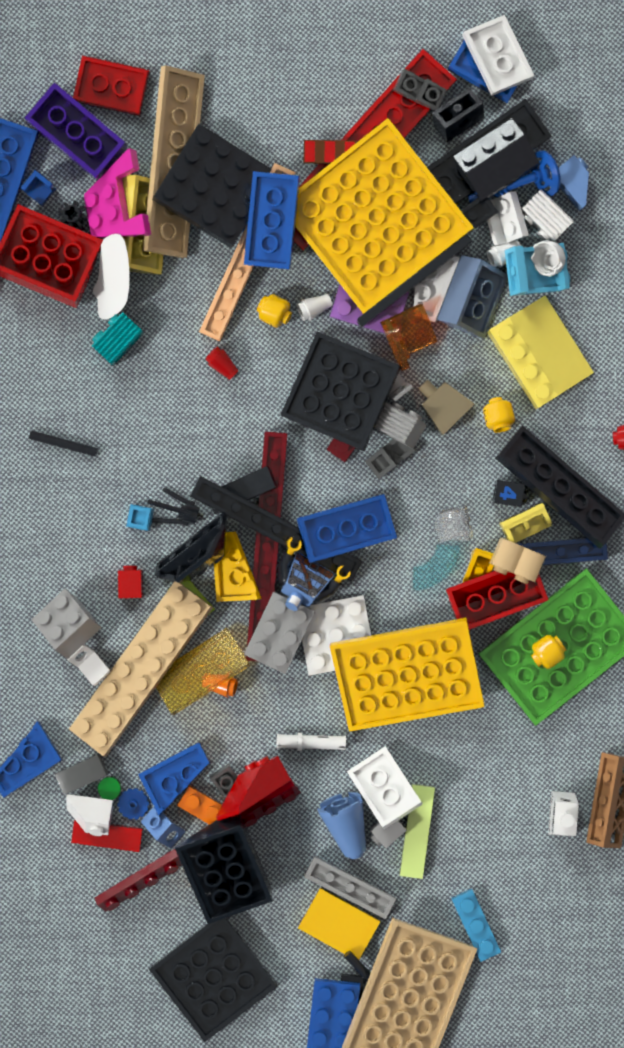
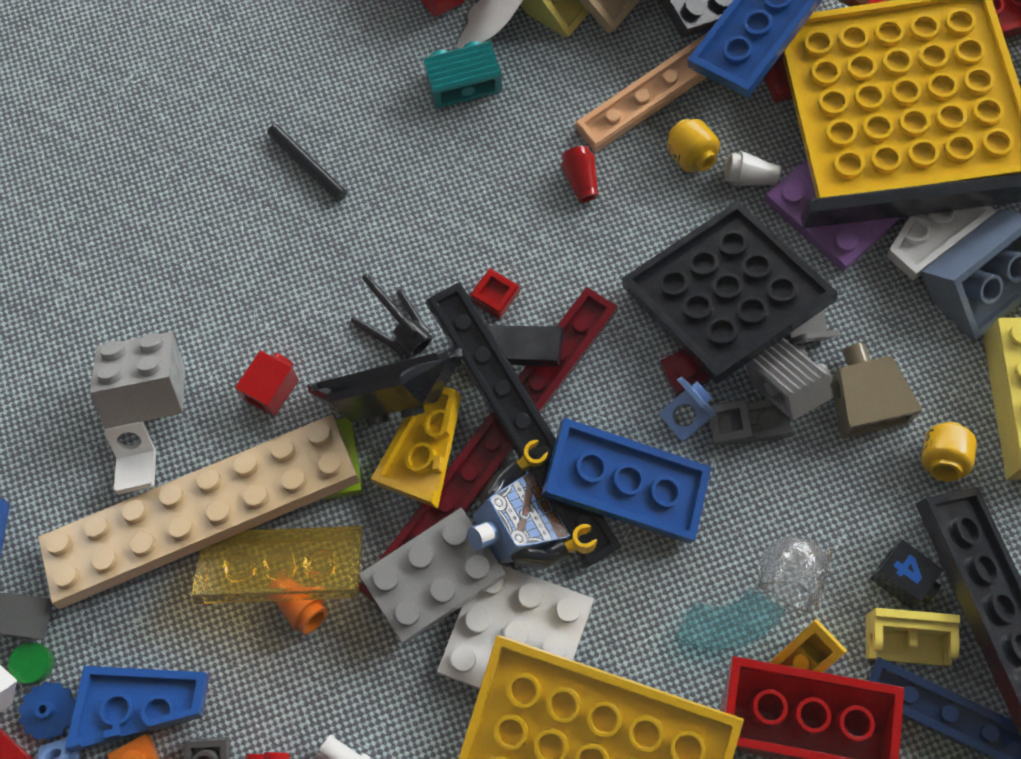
camera: 35 degrees right, 20 degrees down
(140, 517) = (342, 307): dark azure tile -> none
(216, 461) = (494, 293): none -> red tile
(359, 464) = (698, 398): none -> medium blue bracket
(408, 333) = (871, 266): clear orange bracket -> none
(517, 560) = (879, 674): tan brick -> none

